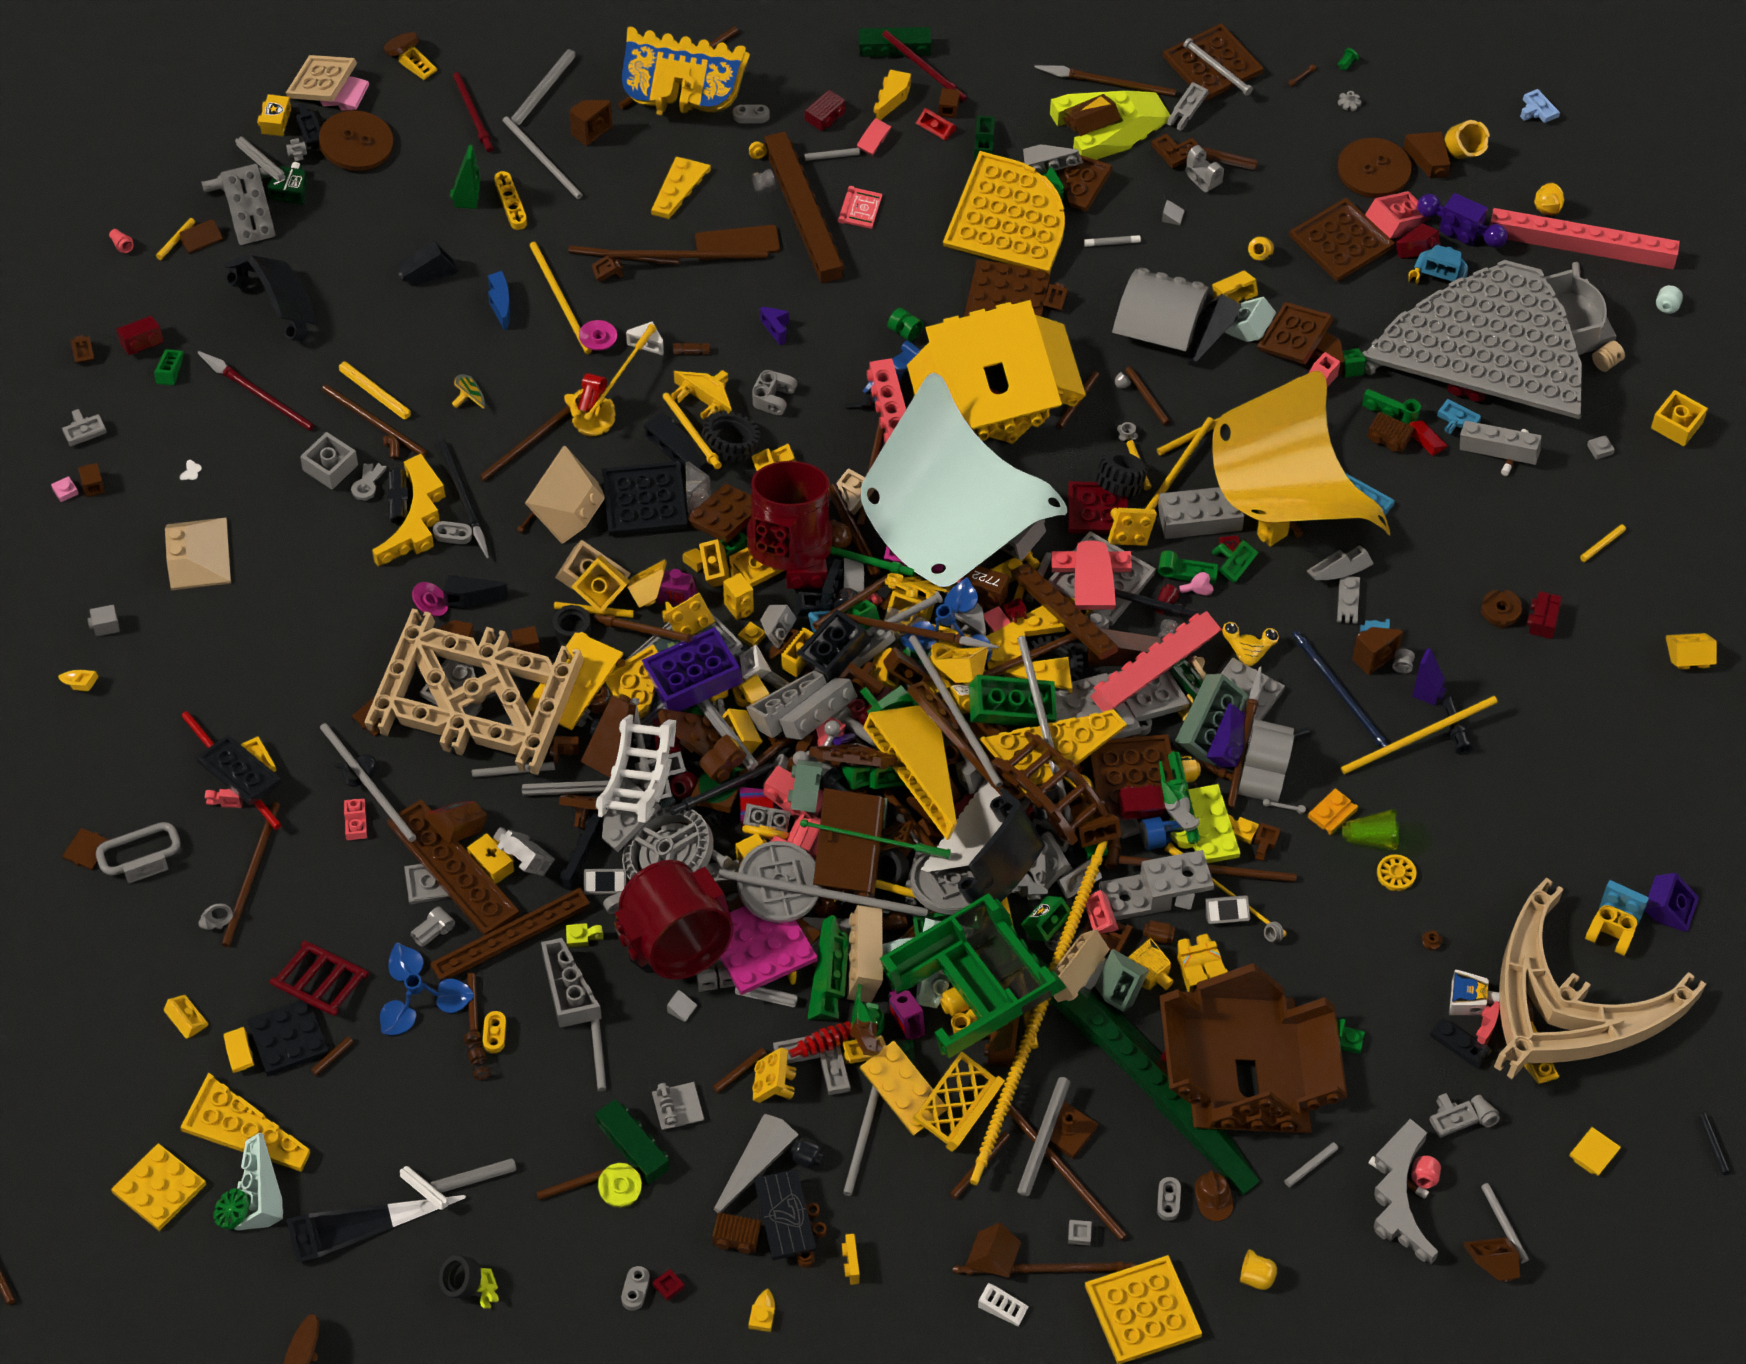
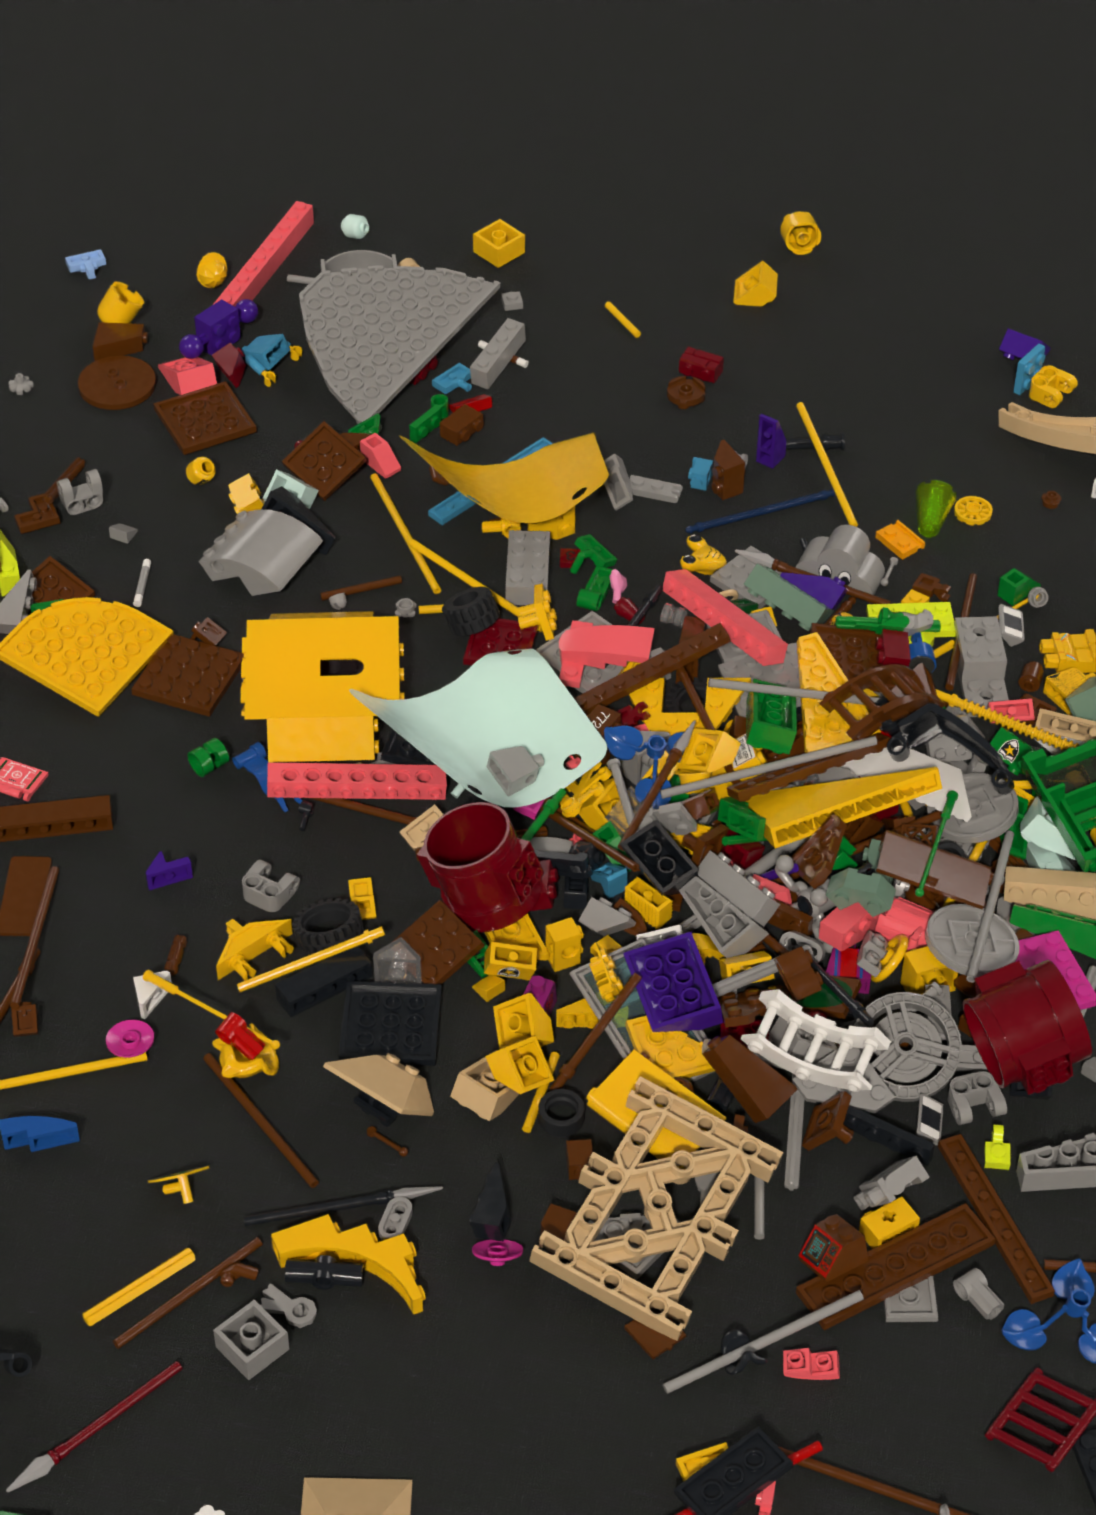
camera: 80 degrees left, 10 degrees down
(870, 639) = (674, 818): none -> light grey plate
(918, 527) = (514, 768): none -> light grey torso
(1285, 911) = (1015, 586): none -> green slope

